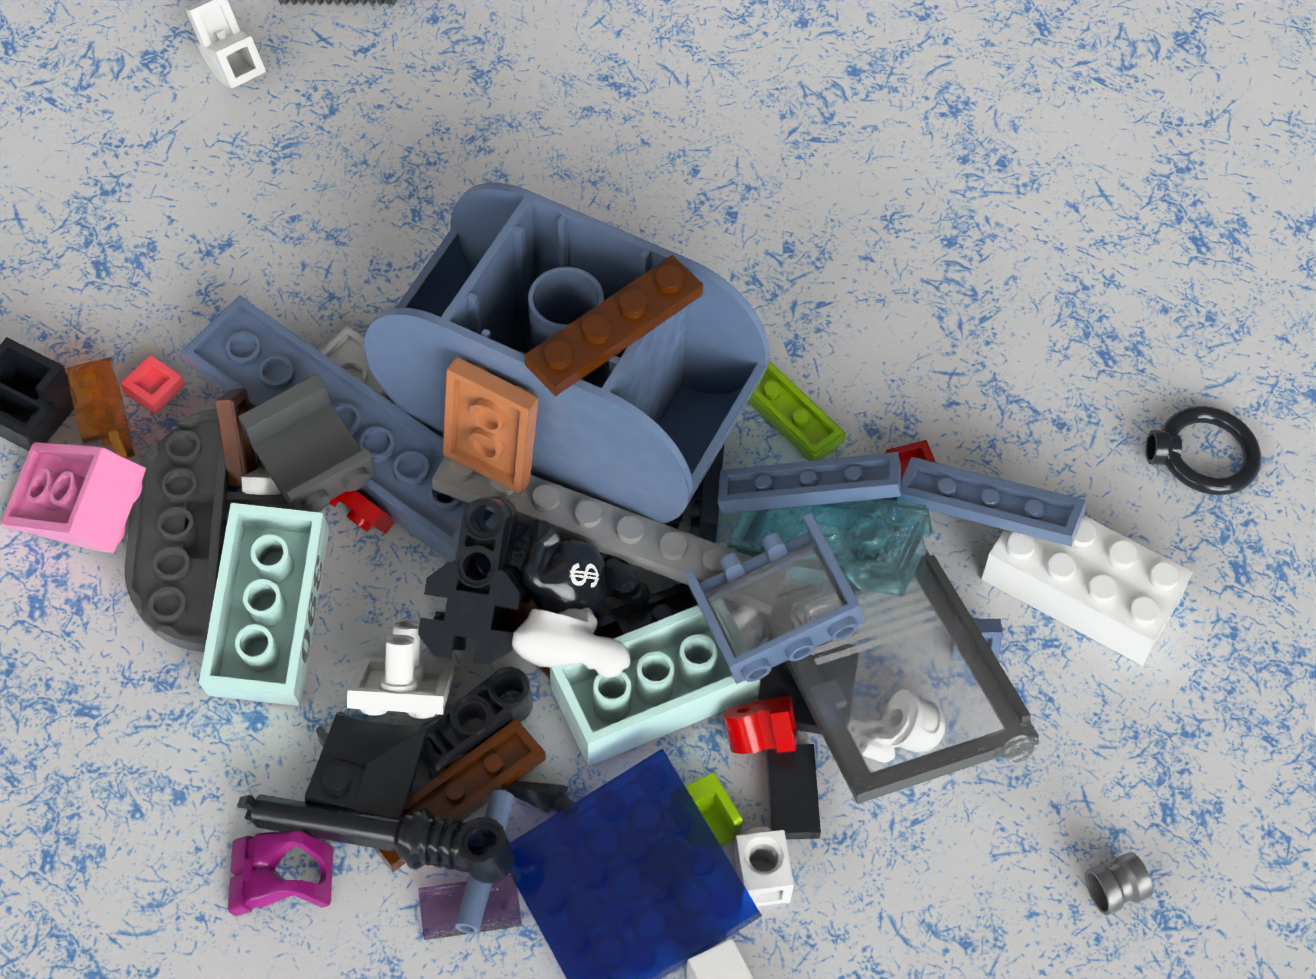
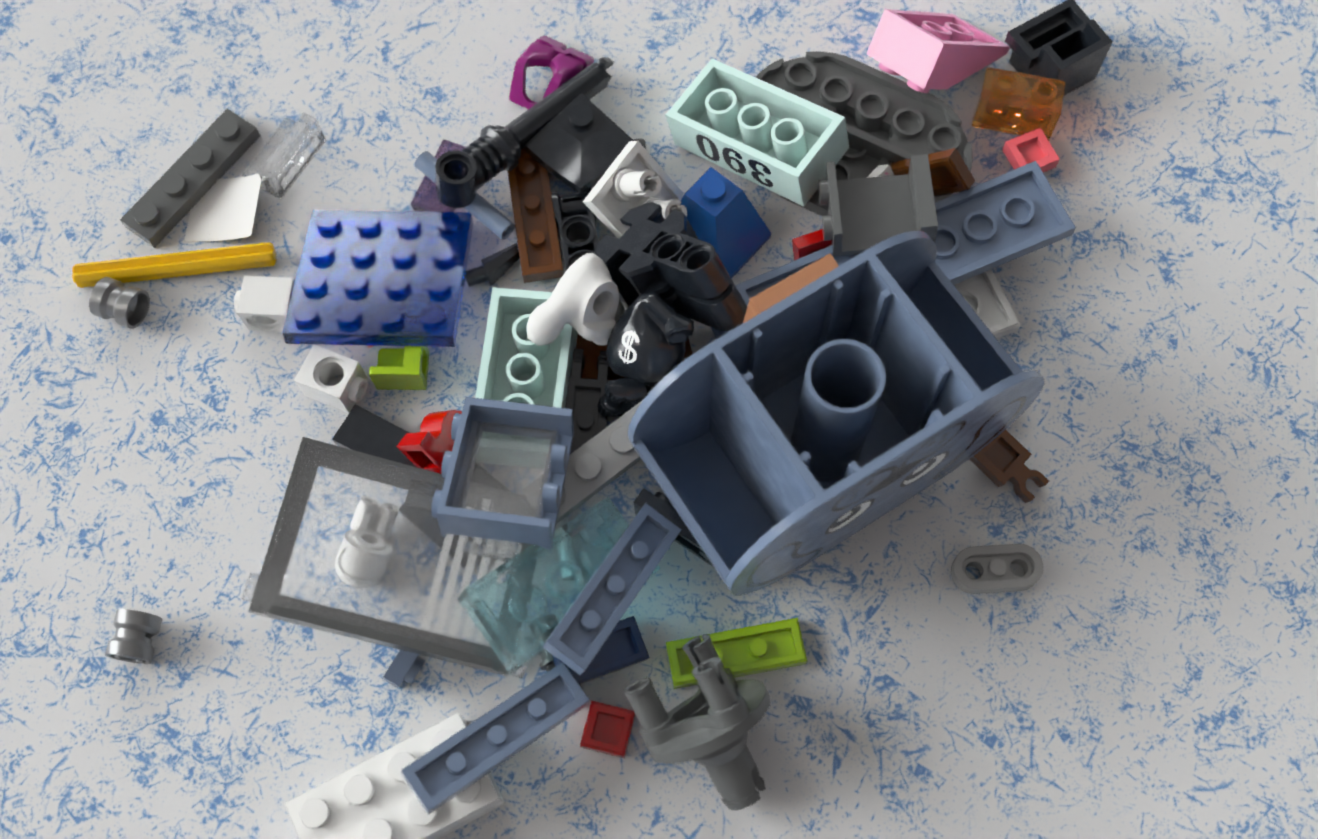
camera: 125 degrees right, 10 degrees up
(371, 605) = (725, 219): none -> blue slope
(613, 325) = (780, 390): reddish brown plate -> none
(863, 373) = (707, 726): none -> dark grey piece

